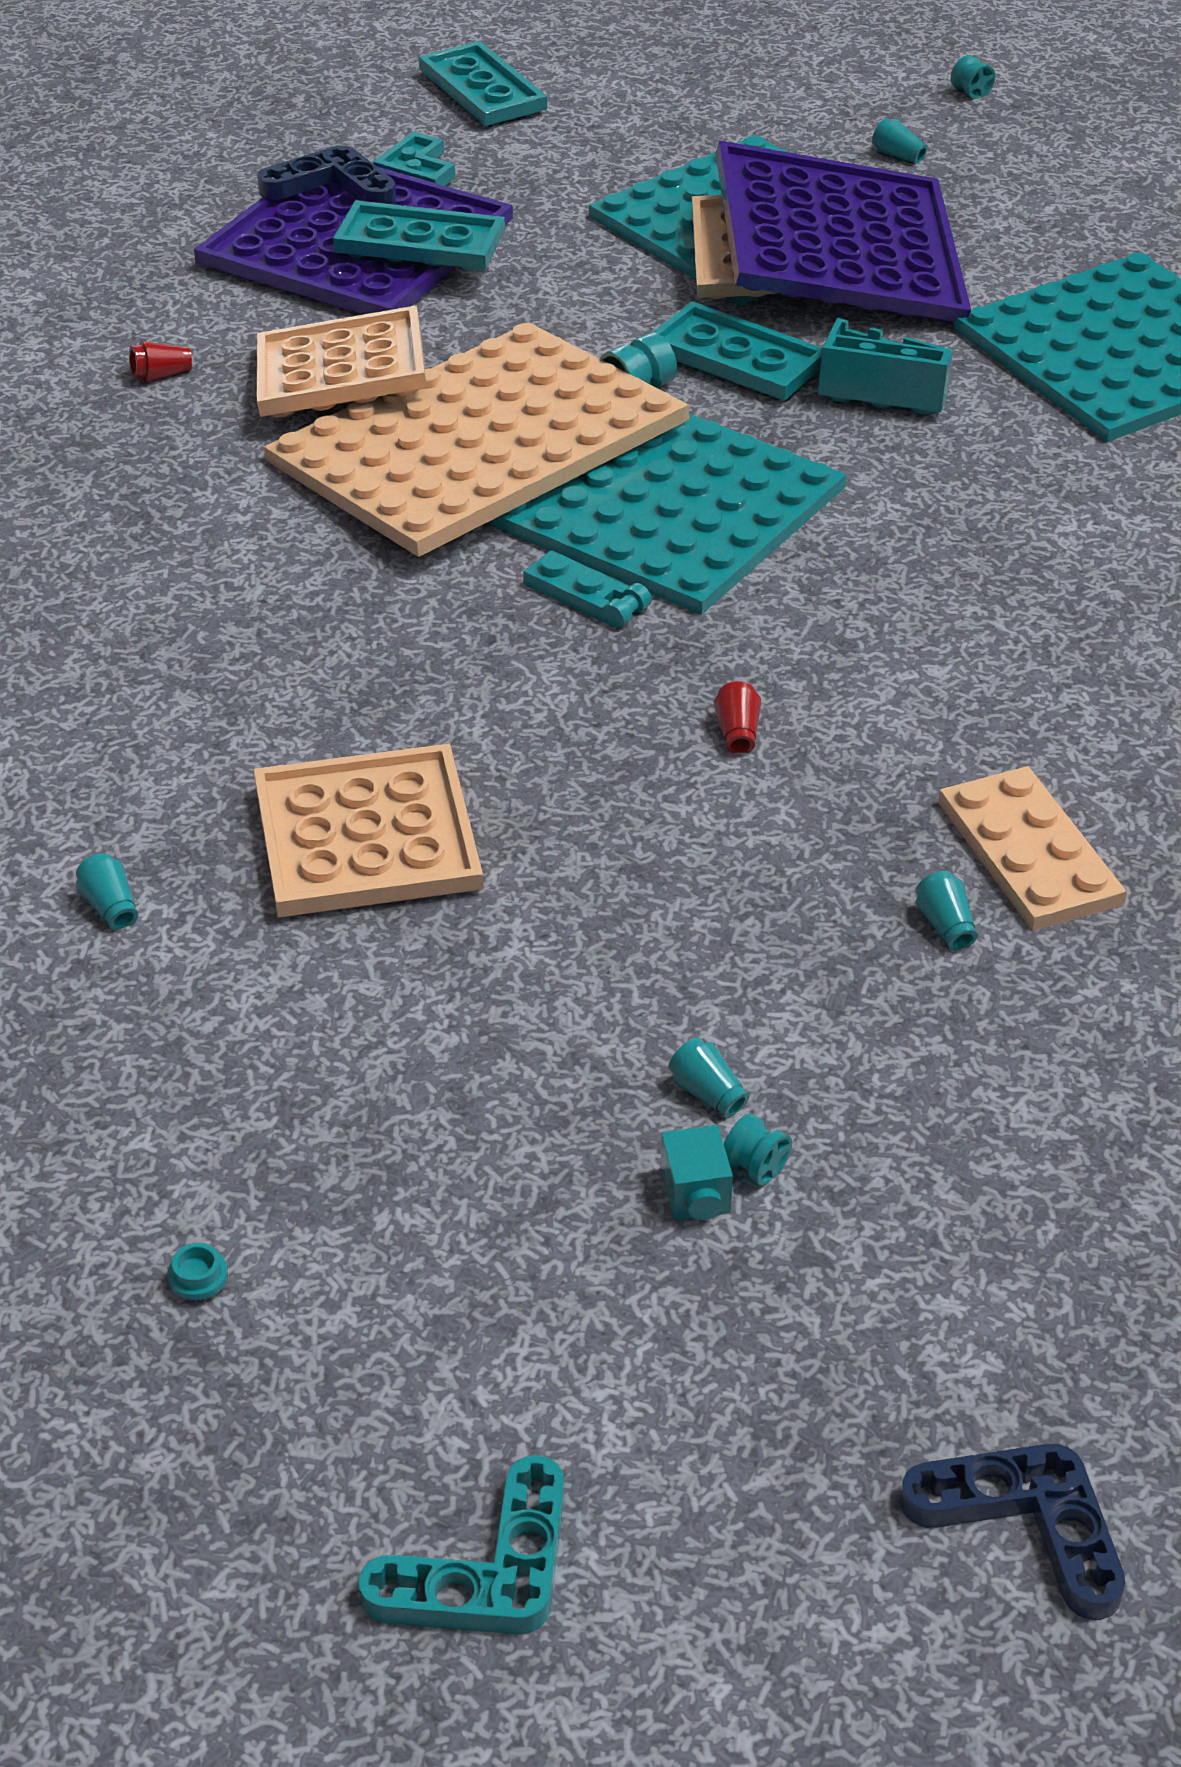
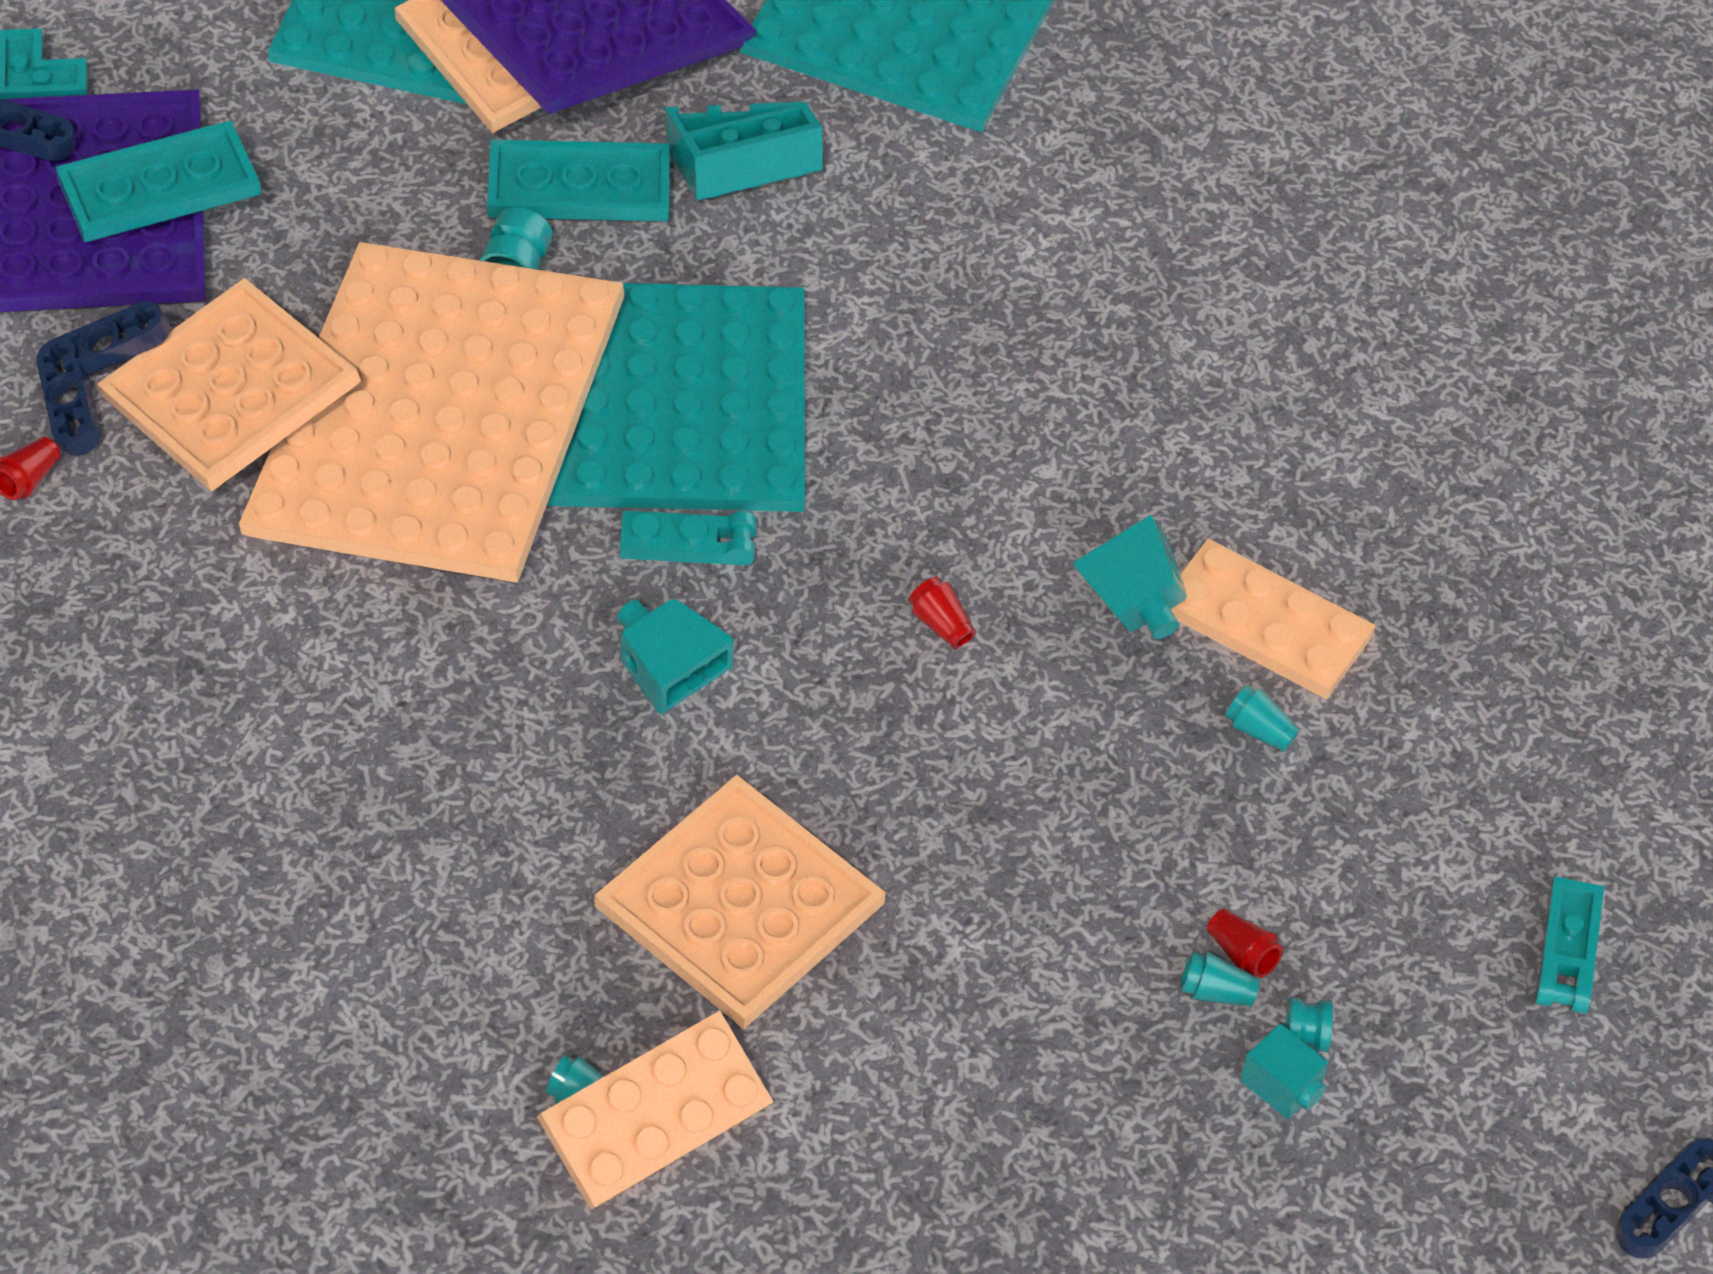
camera: 40 degrees left, 10 degrees up
(139, 927) = (654, 1110): none -> light nougat plate
(258, 314) = (81, 360): none -> dark blue beam
(488, 649) = (671, 651): none -> teal torso
(763, 1064) = (1245, 943): none -> red cone
(927, 755) = (1137, 578): none -> teal torso
(1082, 1218) = (1570, 943): none -> teal plate

